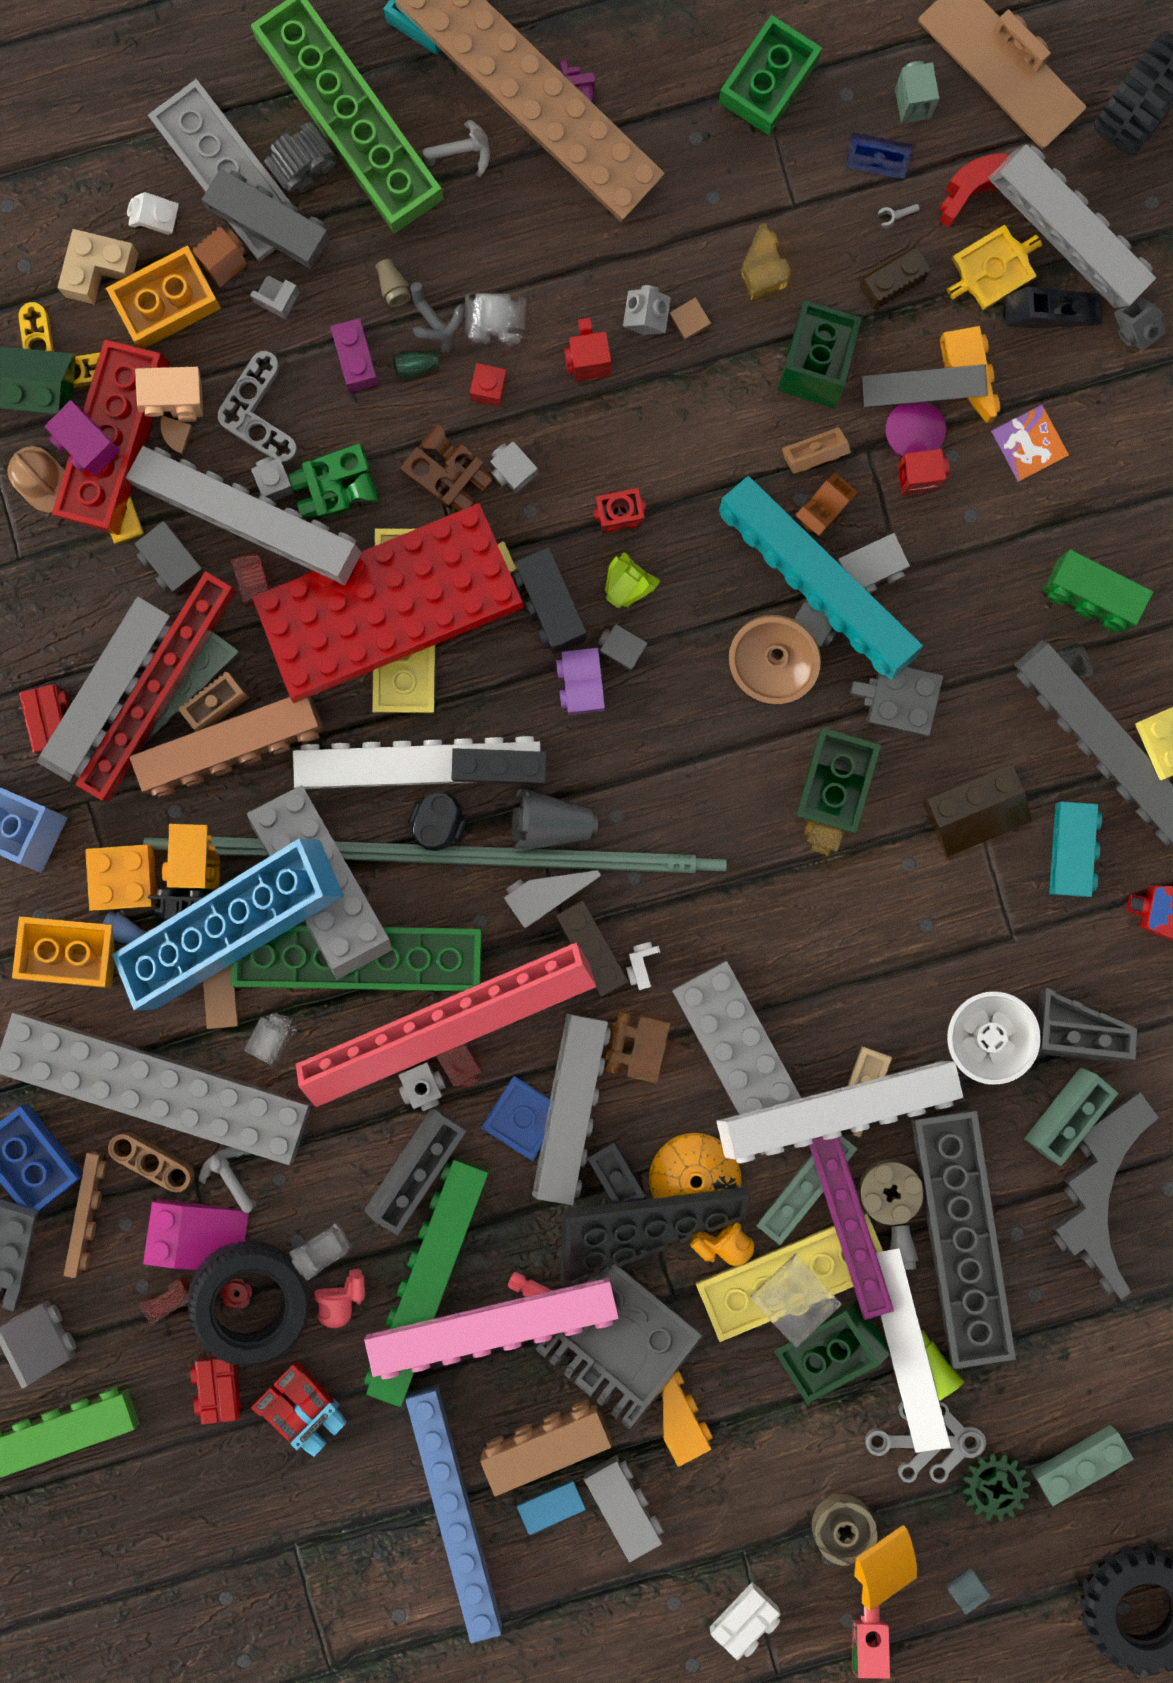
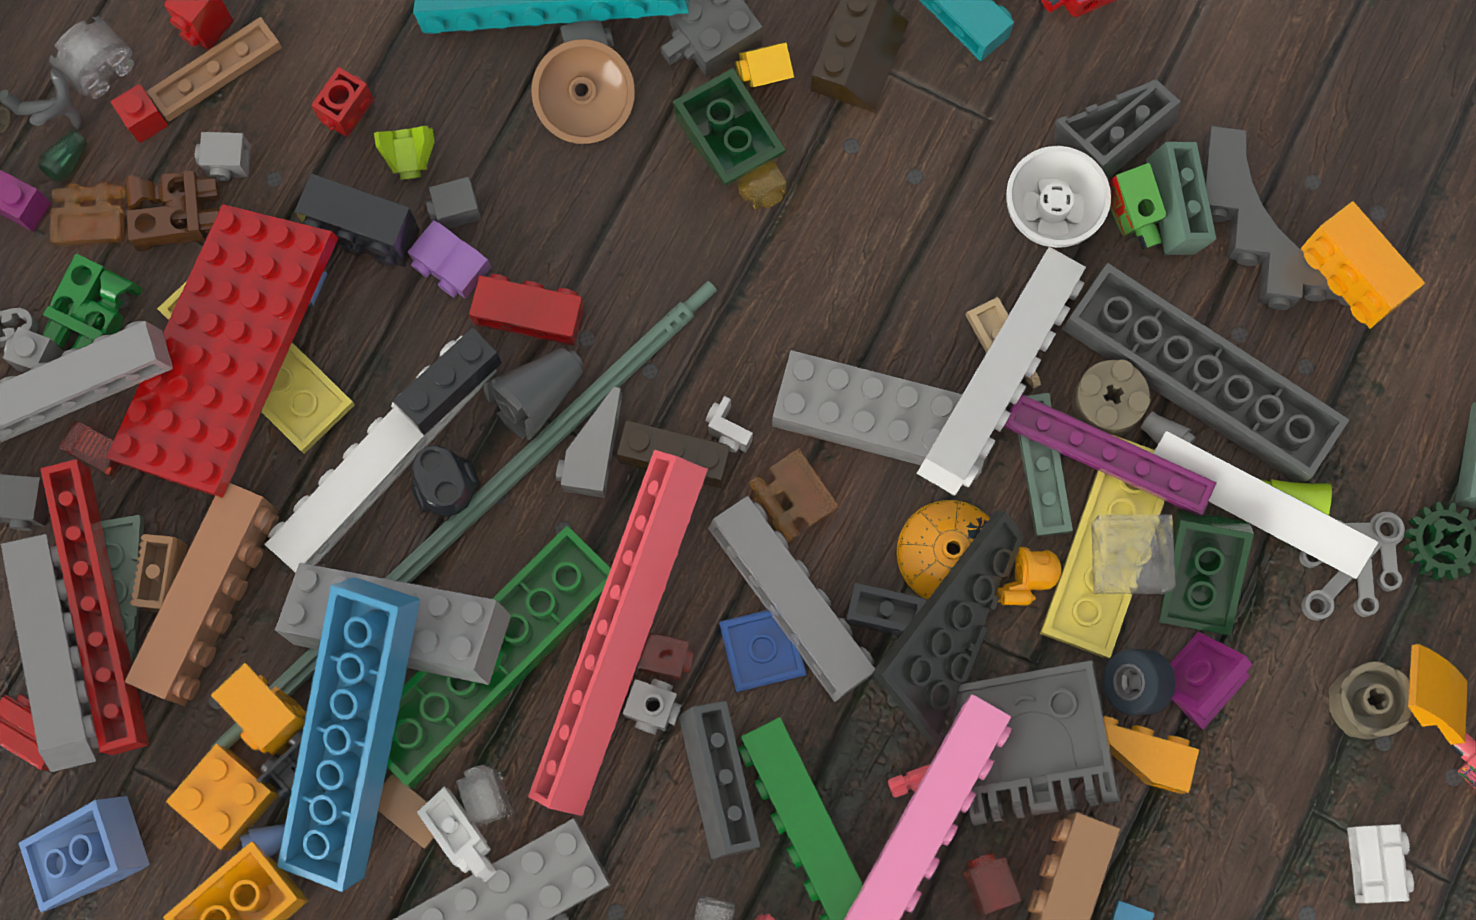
camera: 50 degrees left, 10 degrees down
(231, 1040) = (455, 834): none -> white hinge
(389, 427) = (89, 223): none -> clear orange plate
(507, 1395) = (990, 883): none -> clear red brick
(564, 401) = (214, 69): none -> medium nougat plate
(598, 763) = (527, 309): none -> red brick
(624, 1507) = (1183, 876): light grey brick -> none
(720, 1374) = (1138, 682): none -> black wheel
(760, 1410) = (1207, 678): none -> magenta bracket
(904, 762) = (764, 65): none -> yellow piece
(1042, 1080) = (1137, 204): none -> bright green torso
(1125, 1279) = (1361, 265): none -> light orange brick

